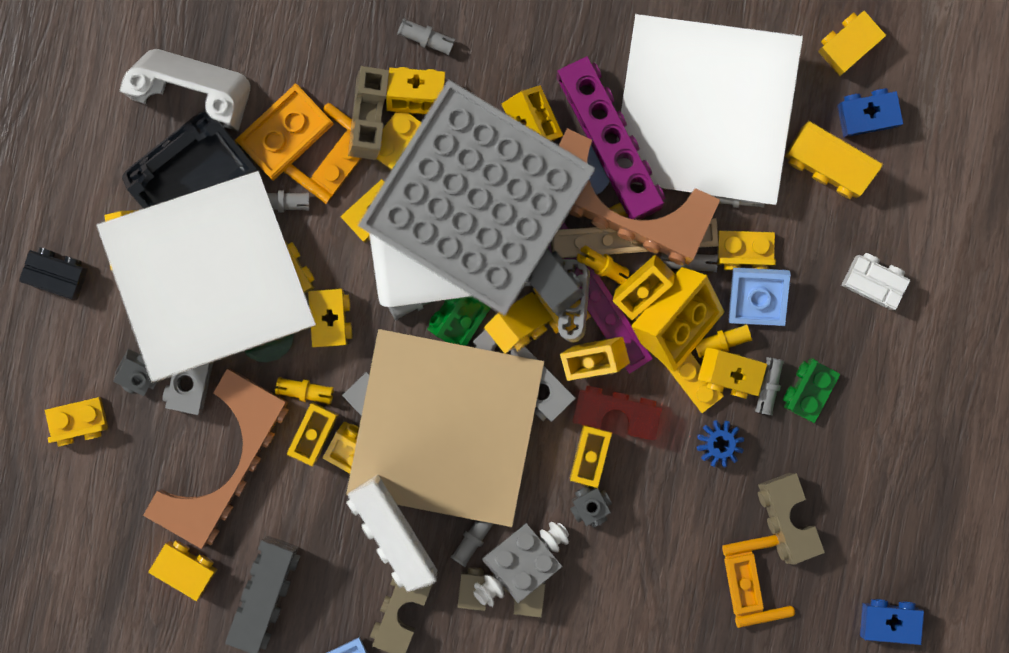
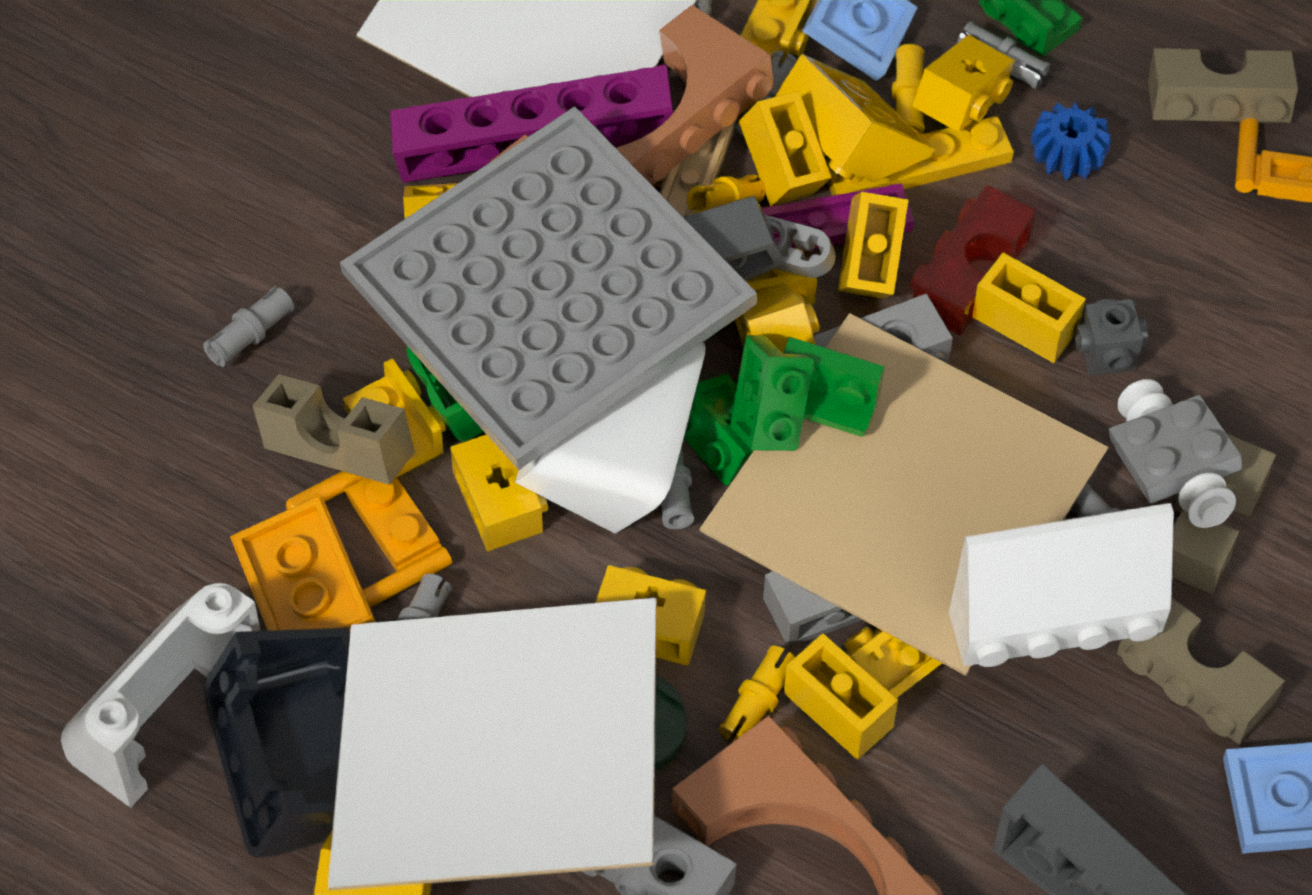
camera: 70 degrees left, 30 degrees down
(413, 89) = (335, 353): yellow brick -> none
(458, 340) = (770, 396): none -> green bracket
(477, 368) = (841, 388): none -> green bracket

